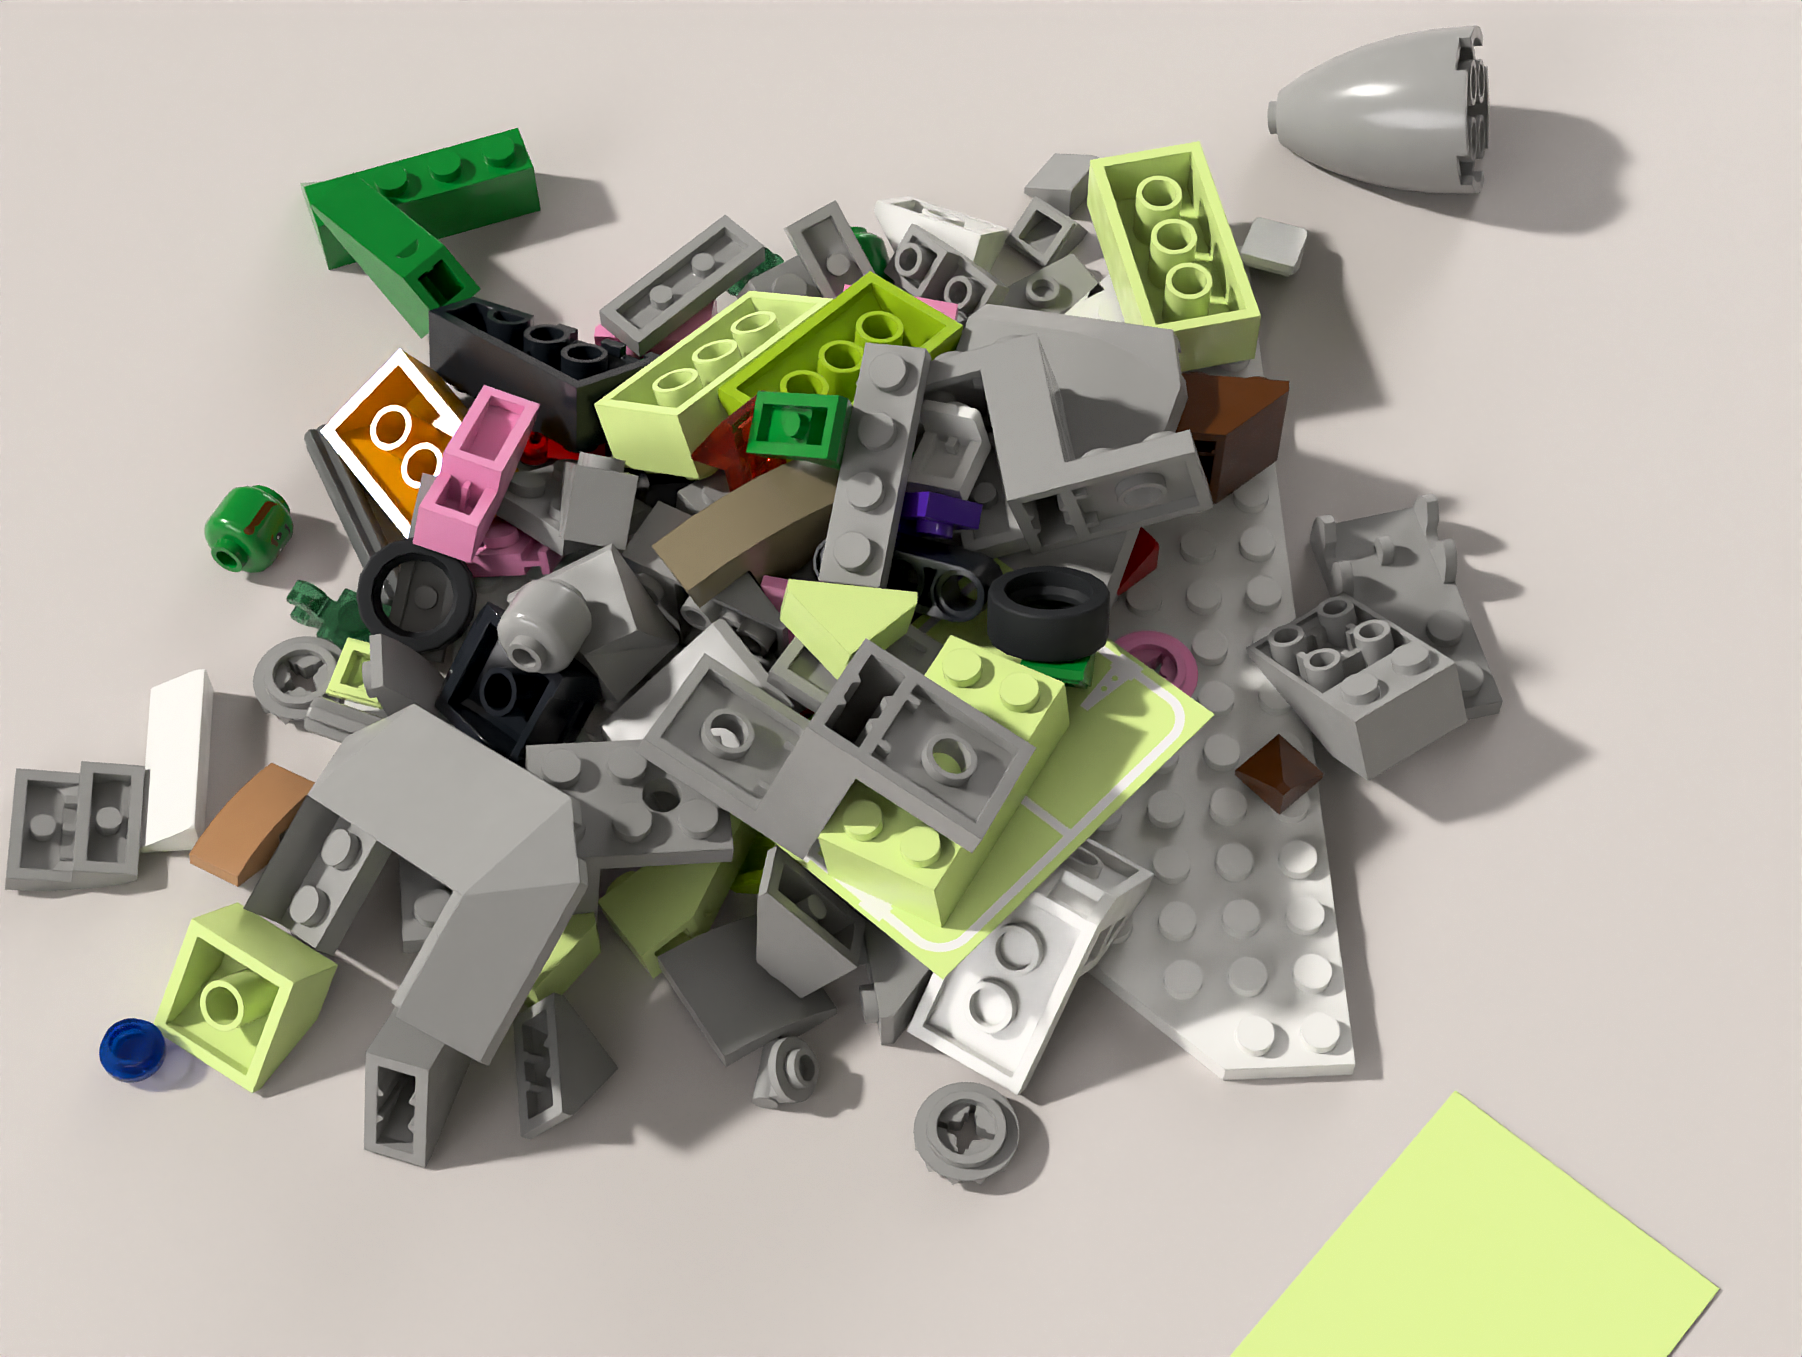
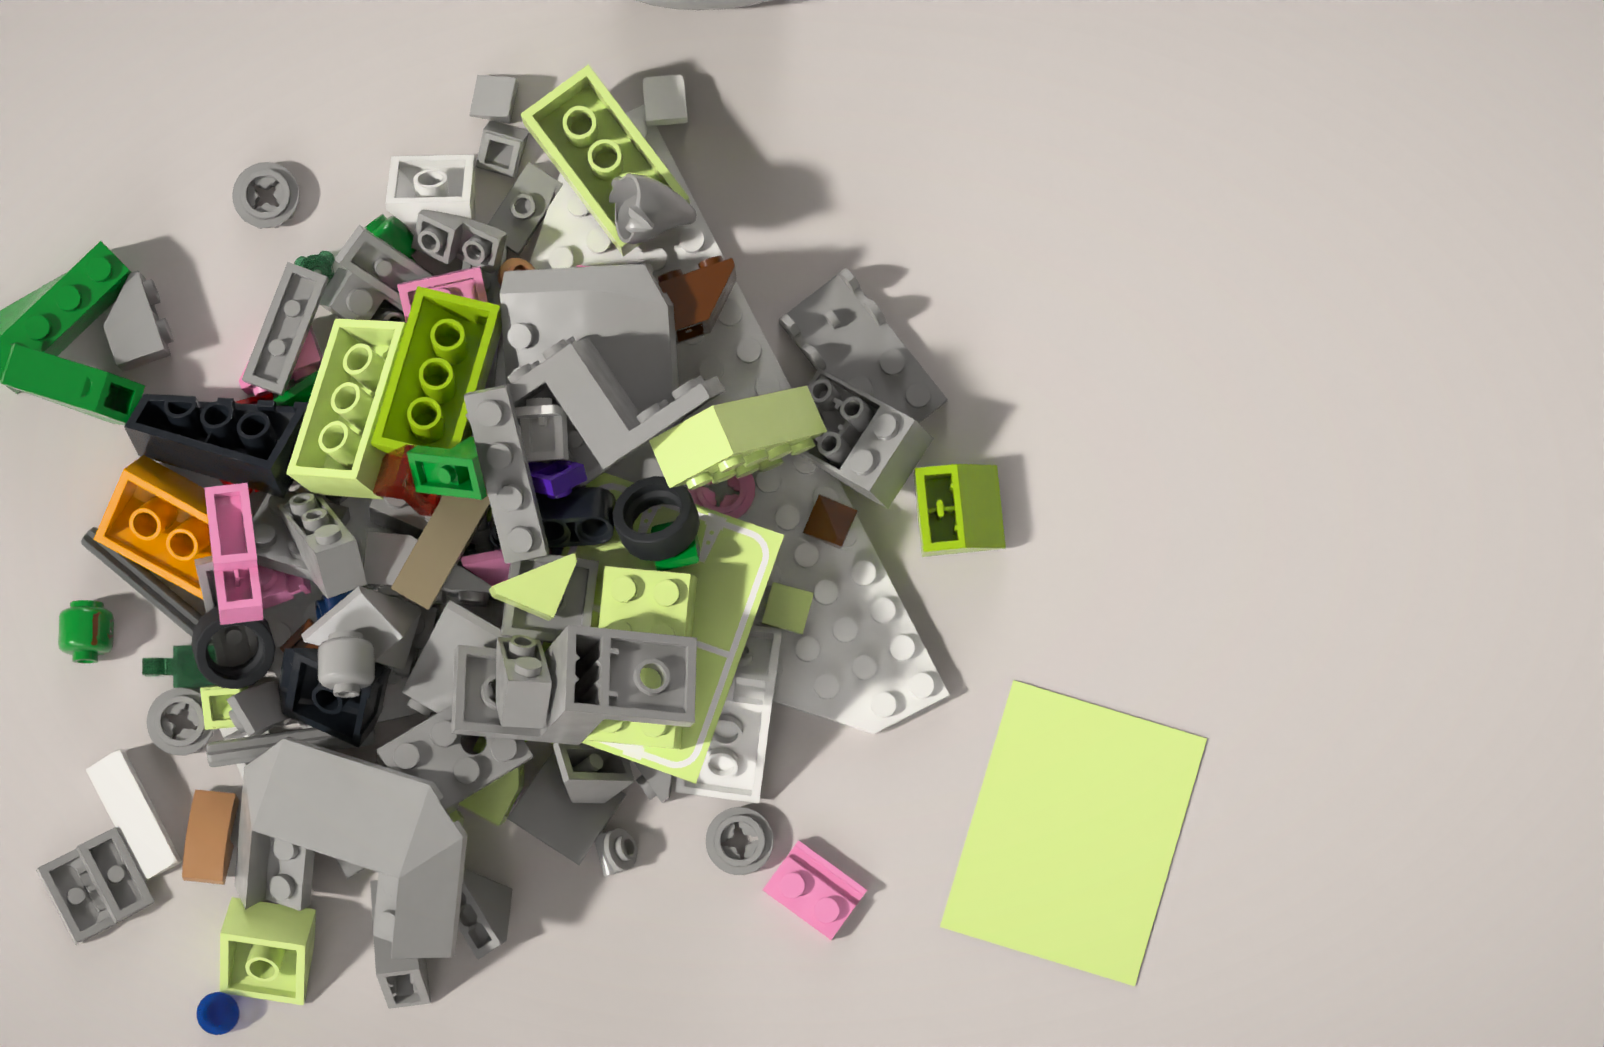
camera: 25 degrees left, 25 degrees up
(506, 240) = (134, 325): none -> light grey slope
(750, 163) = (265, 176): none -> light grey gear
(764, 721) = (522, 682): none -> light grey slope
(1044, 1248) = (814, 890): none -> bright pink plate
(1174, 852) = (787, 608): none -> yellowish green tile
(1204, 570) = (738, 438): none -> yellowish green brick
(1206, 291) = (647, 208): none -> light grey hat
(1465, 829) = (959, 509): none -> lime slope

